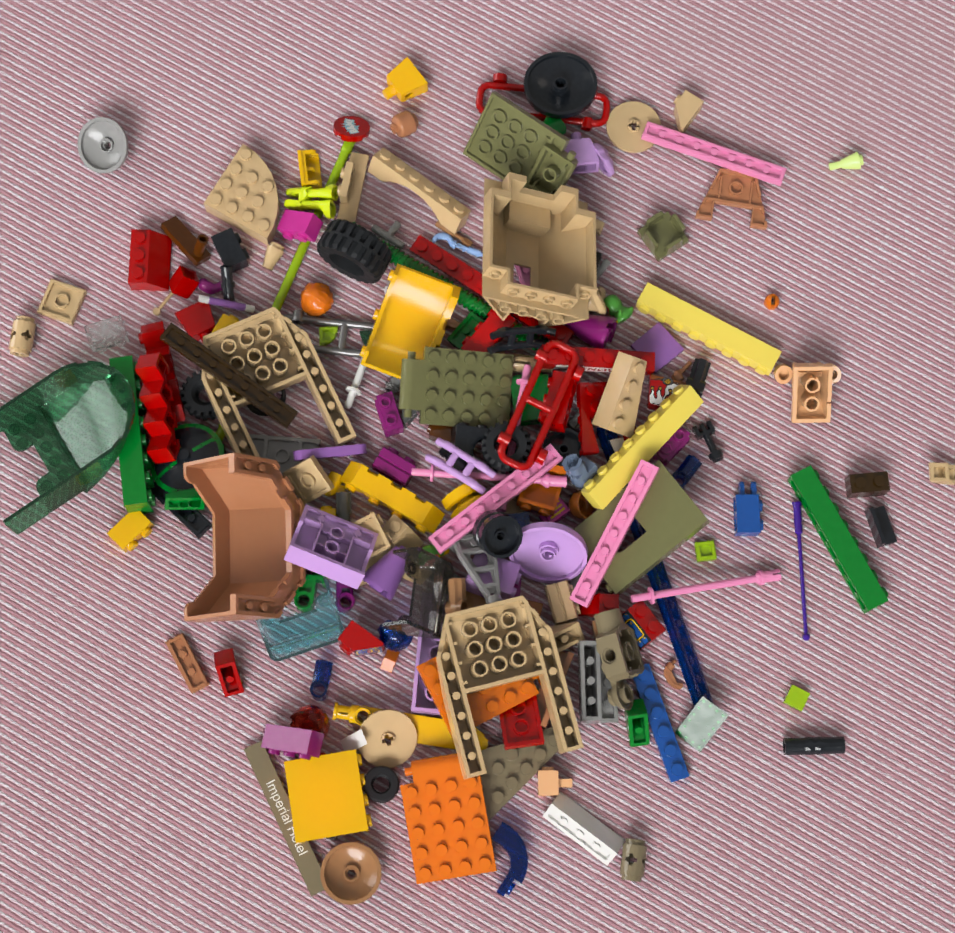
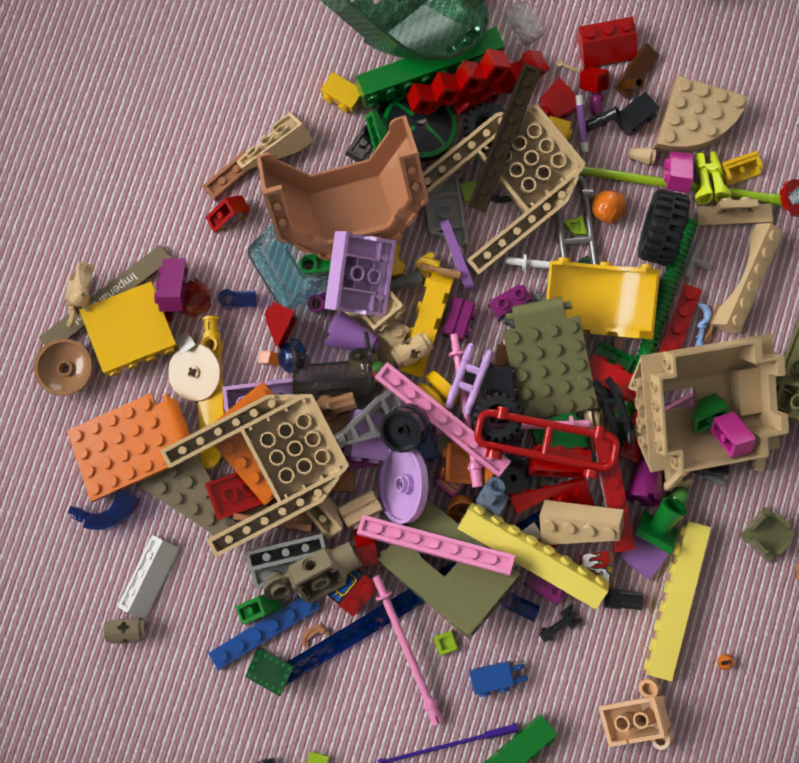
camera: 80 degrees right, 5 degrees up
(166, 601) = (285, 139): none -> tan wedge
(266, 426) = (467, 190): none -> lime tile
(274, 841) = (78, 290): none -> tan animal
(309, 479) = (425, 241): tan tile -> none
(343, 470) = (441, 270): none -> medium nougat piece
(390, 793) = (139, 376): black tyre -> none
(420, 523) = (419, 344): none -> tan piece
(542, 254) = (706, 410): none -> green slope
(548, 782) = (183, 534): light nougat brick -> none
(569, 238) = (733, 434): none -> dark pink brick
(639, 326) = (661, 528): none -> green plant
(677, 375) = (619, 579): nougat hand -> none

